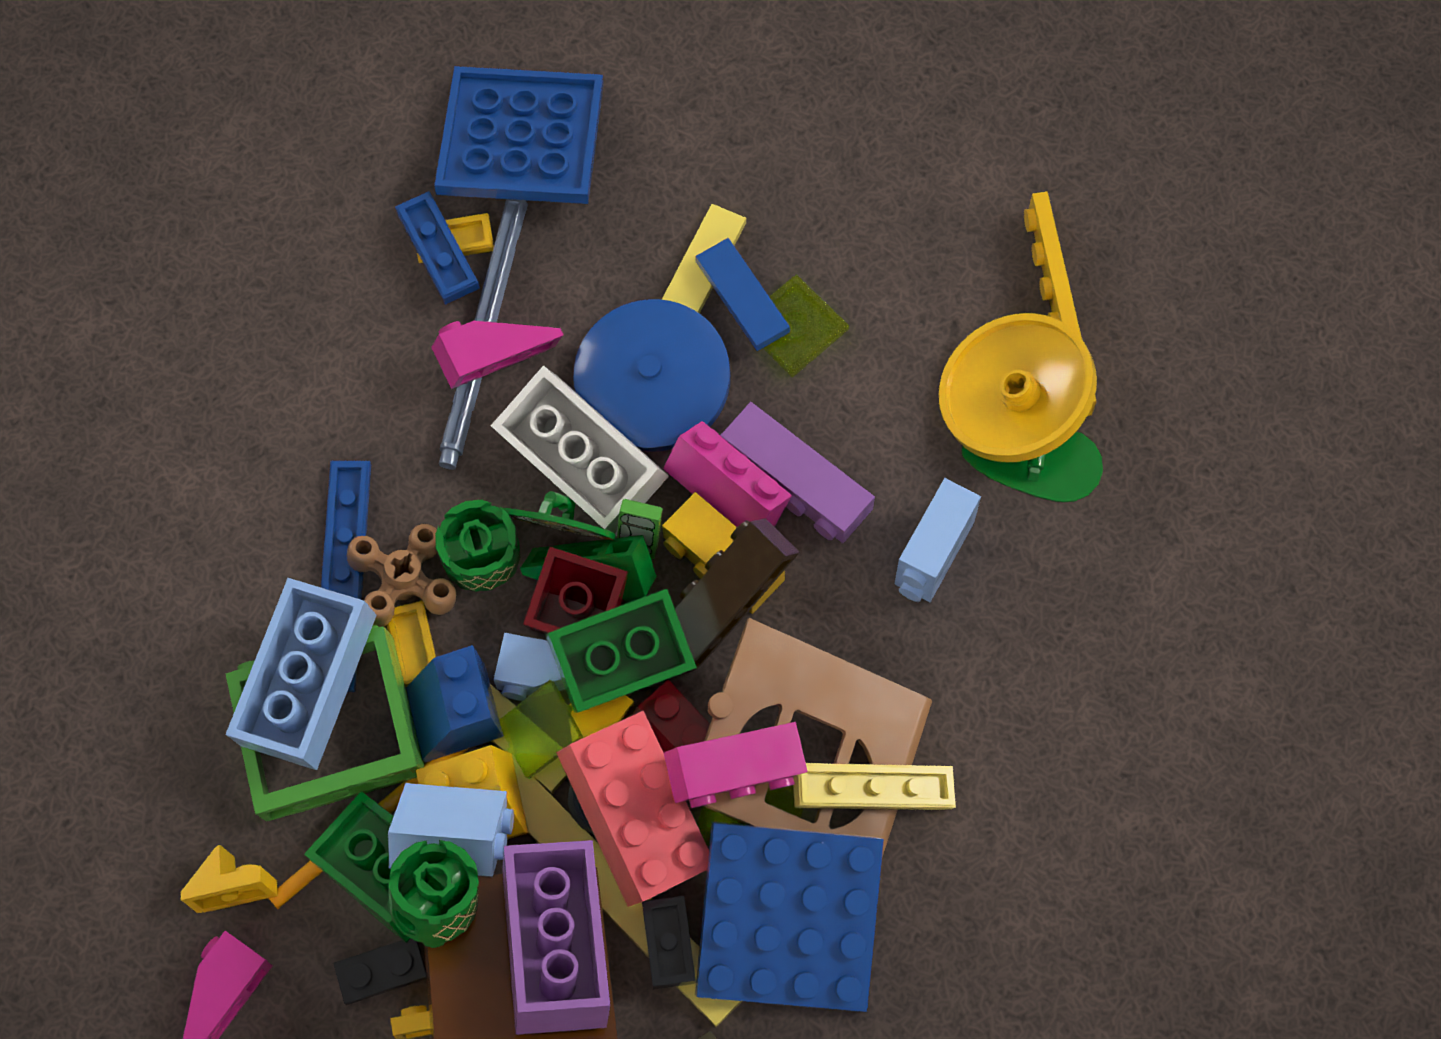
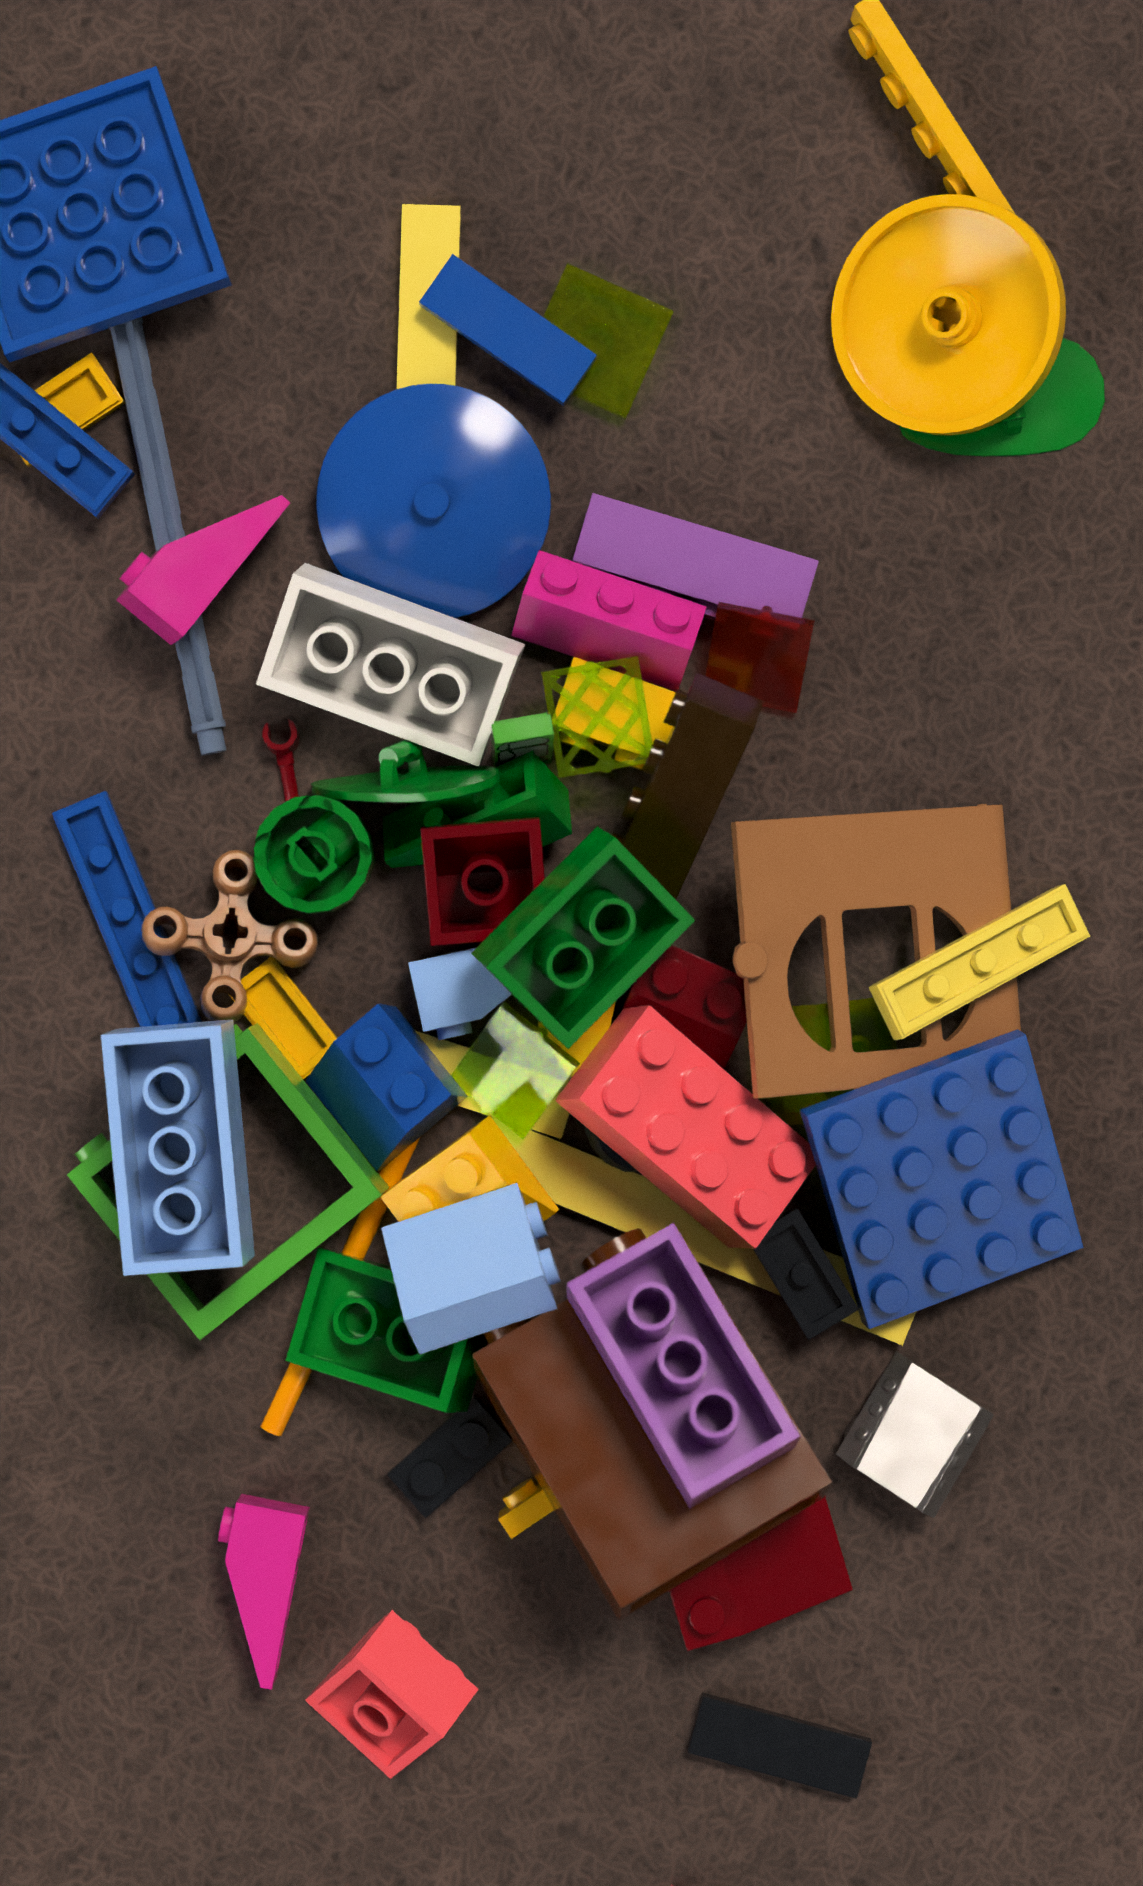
camera: 25 degrees left, 20 degrees up
(223, 885) = (195, 1441): yellow slope -> none
(433, 892) = (502, 1376): green brick -> none
(491, 481) = (285, 758): none -> dark red hand
(701, 503) = (590, 671): none -> clear neon green window
(735, 764) = (804, 1031): dark pink brick -> none
(818, 538) = (760, 653): none -> clear red piece
(936, 541) = (928, 591): light blue brick -> none

